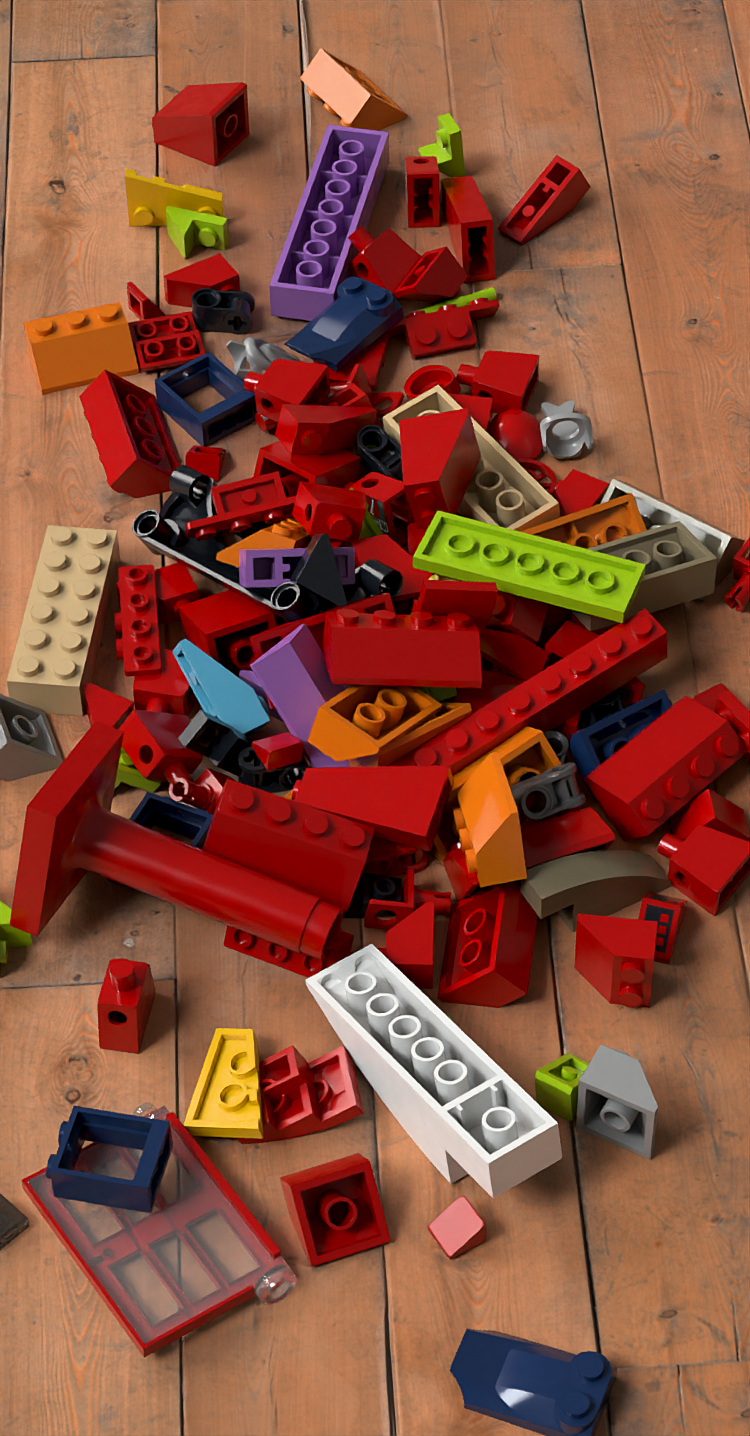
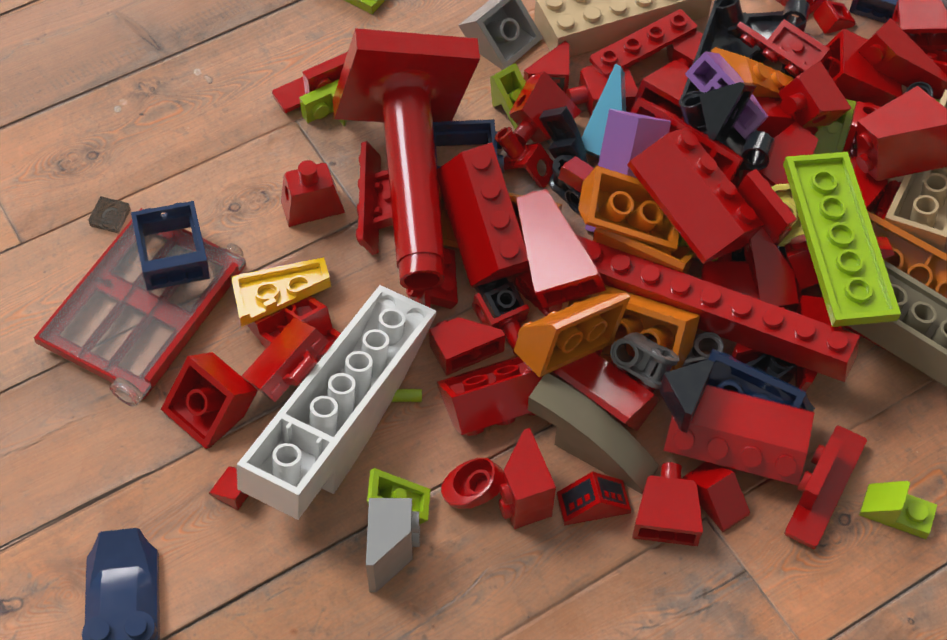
camera: 60 degrees right, 10 degrees up
(171, 939) = (374, 199): none -> red bracket
(349, 1099) = (286, 359): none -> red piece
(585, 1011) = (472, 483): none -> red hat
(618, 774) = (684, 389): none -> black slope

